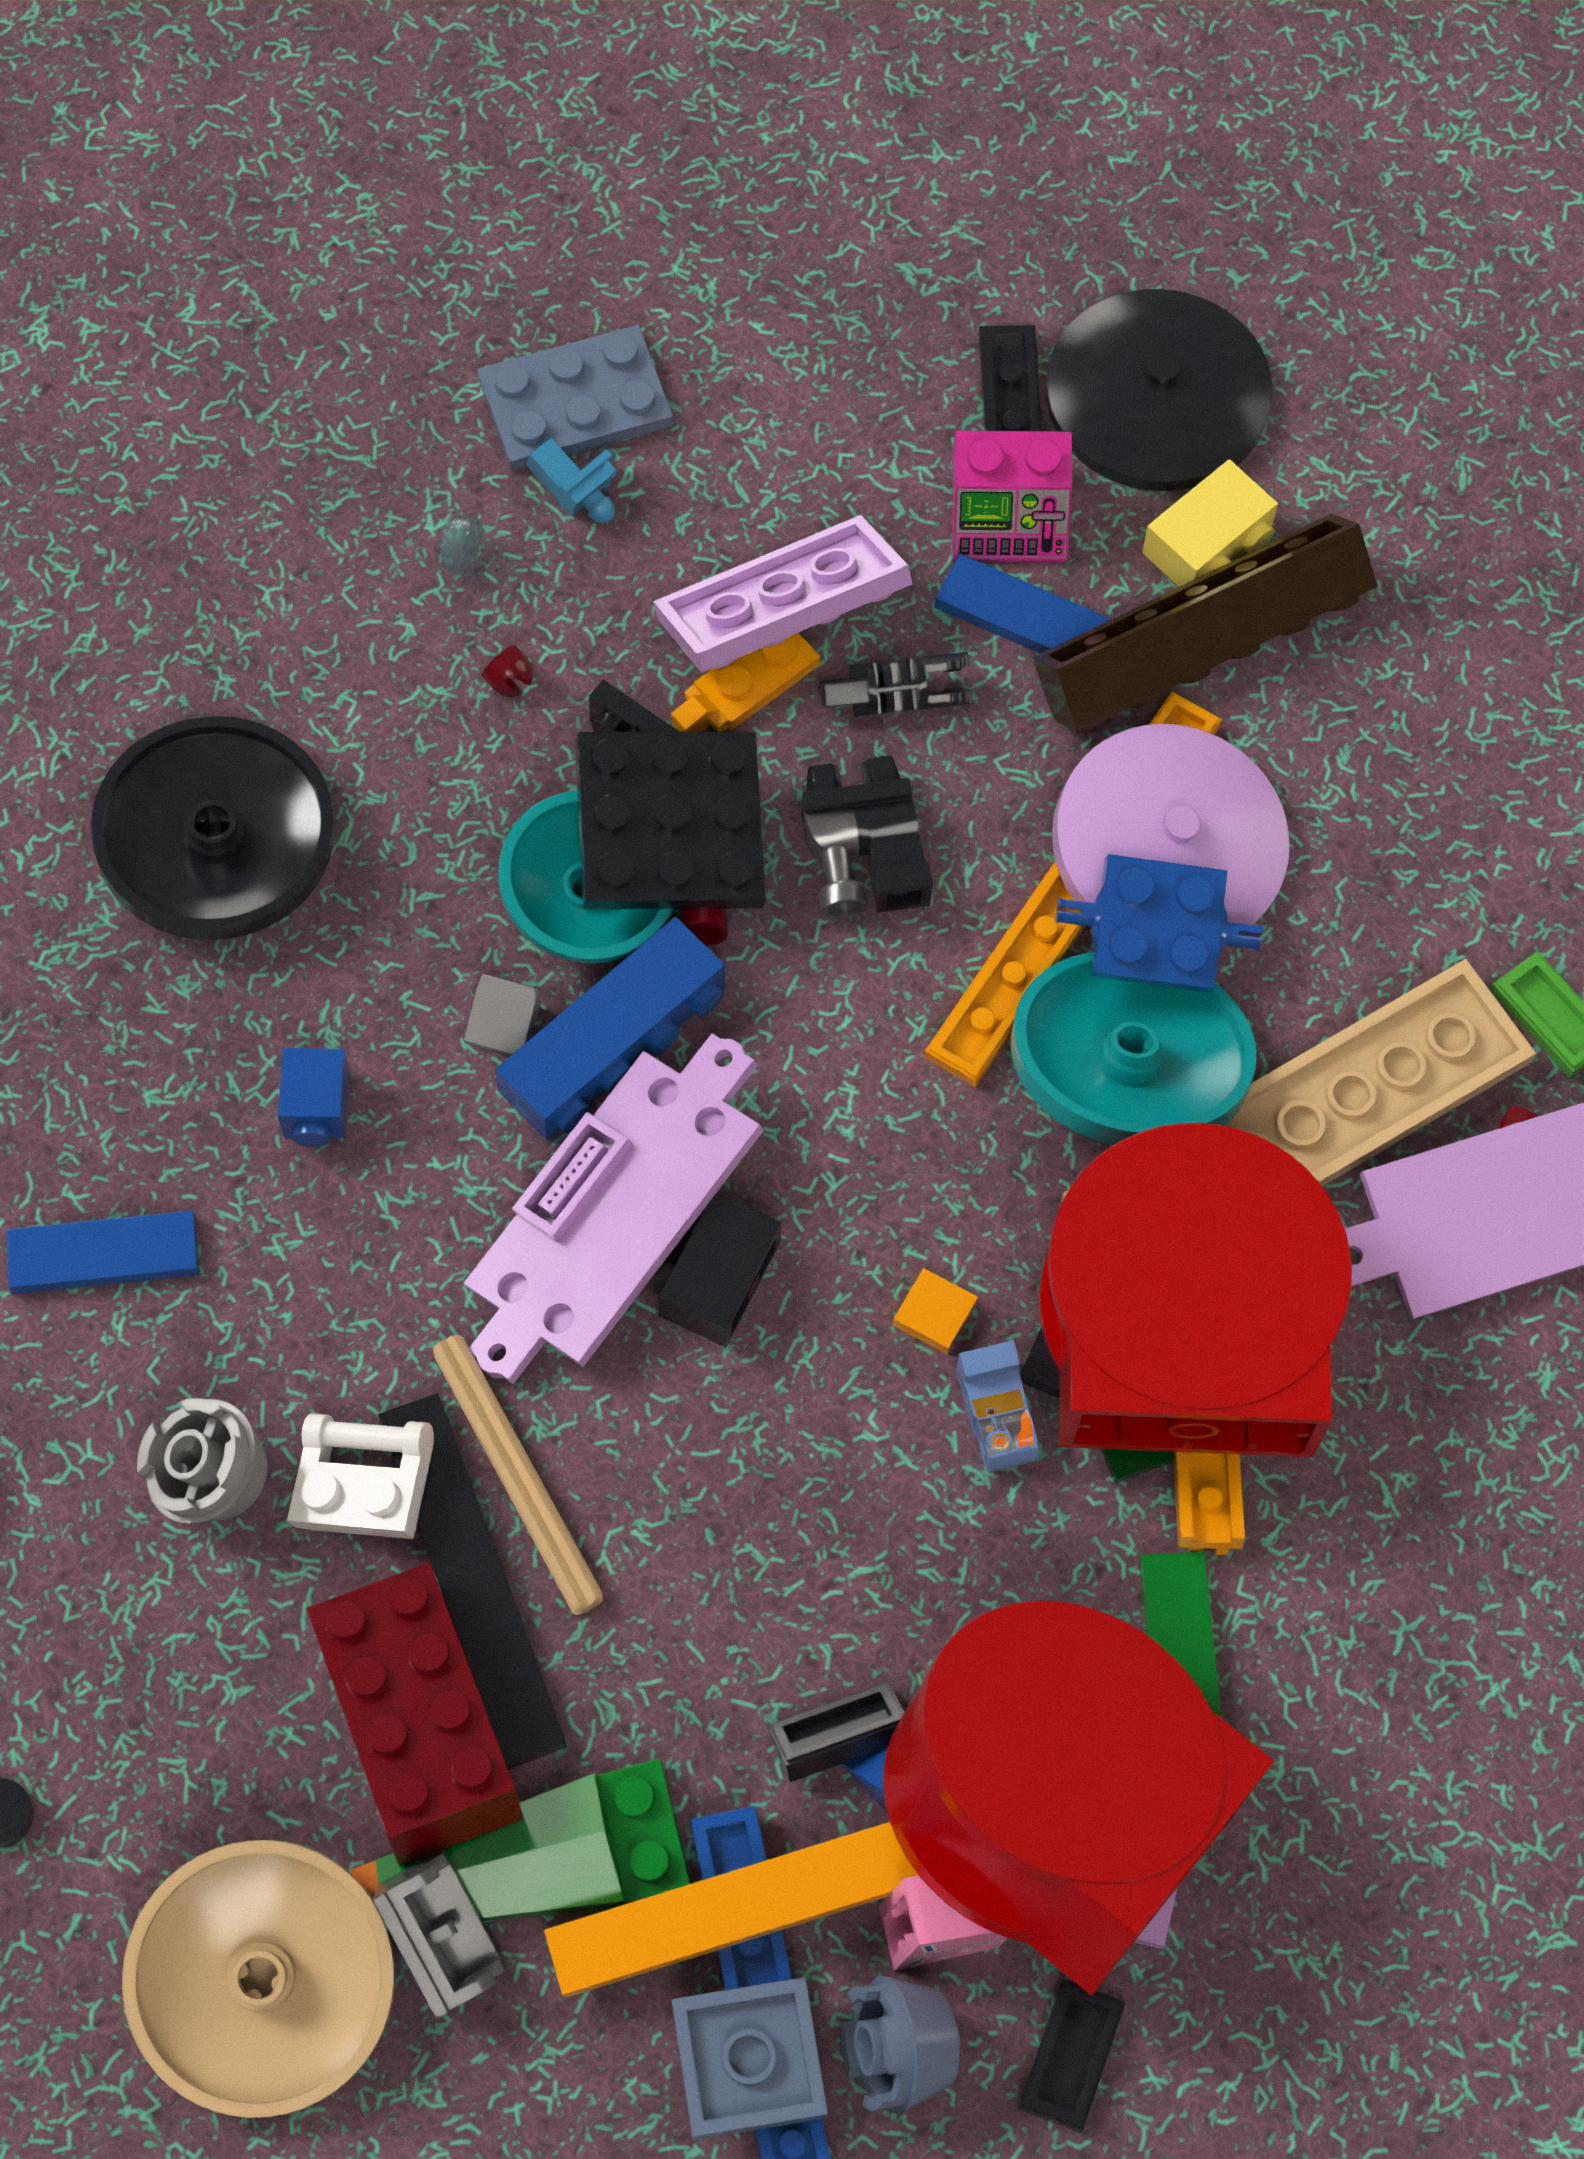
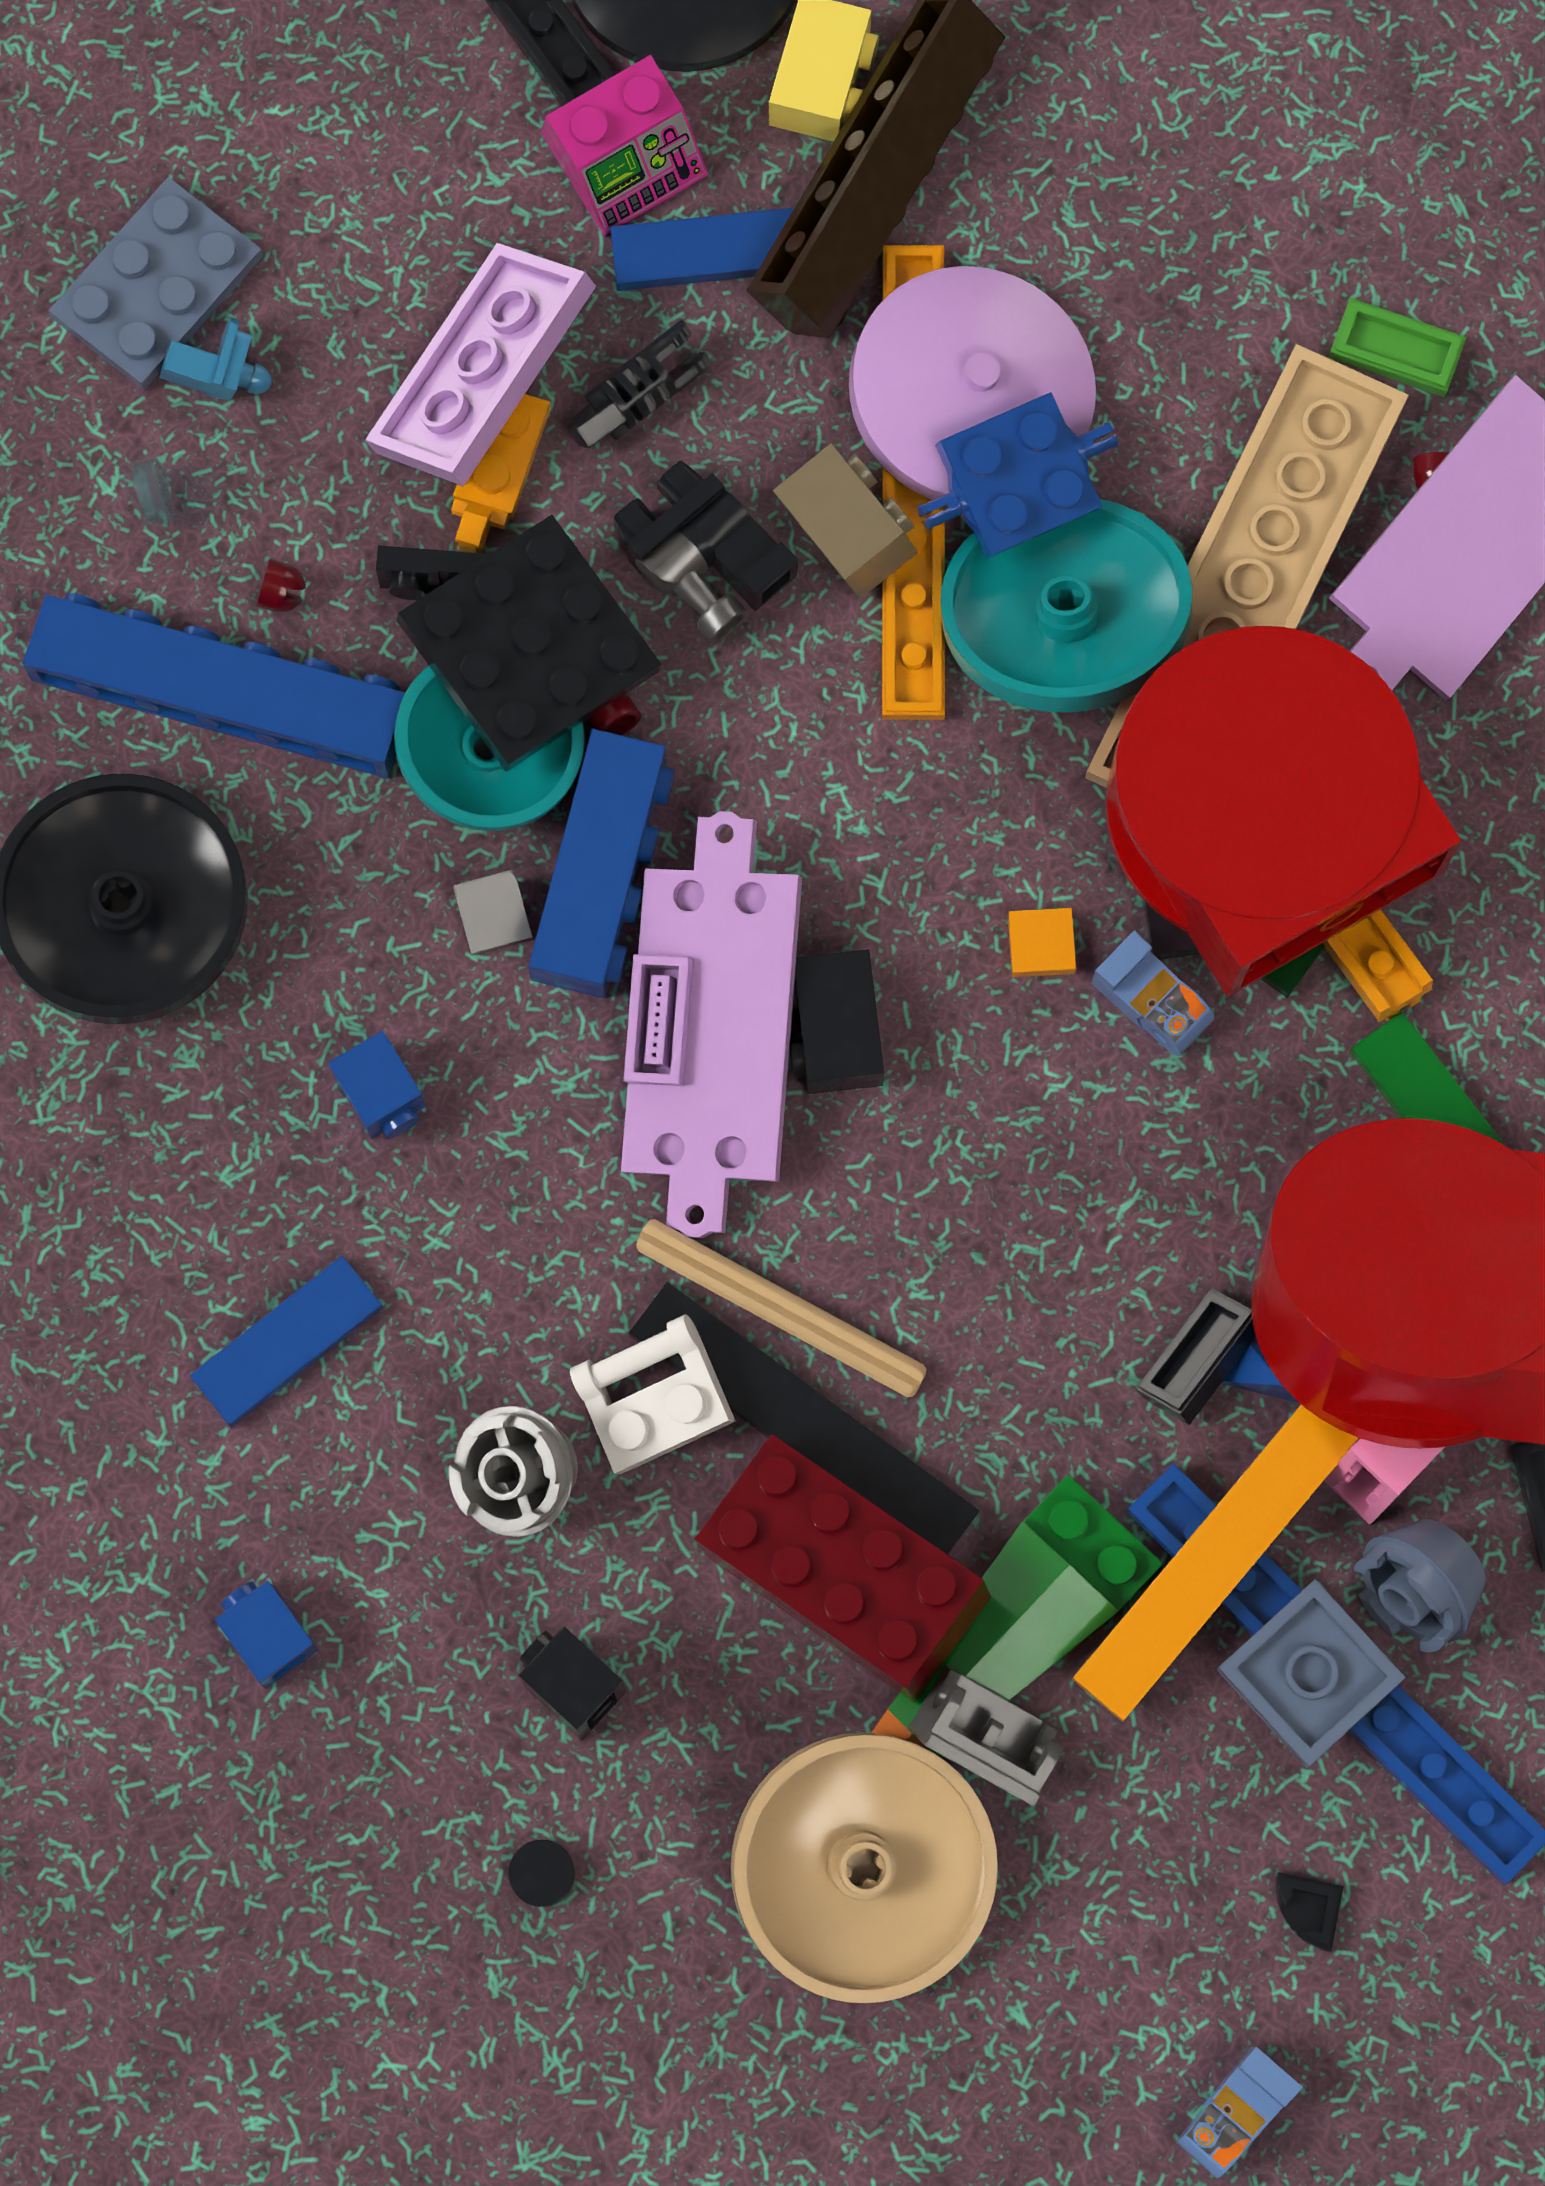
camera: 30 degrees left, 10 degrees up
(124, 1662) = (570, 1680): none -> black brick
(403, 710) = (215, 684): none -> blue brick
(995, 879) = (846, 520): none -> dark tan brick

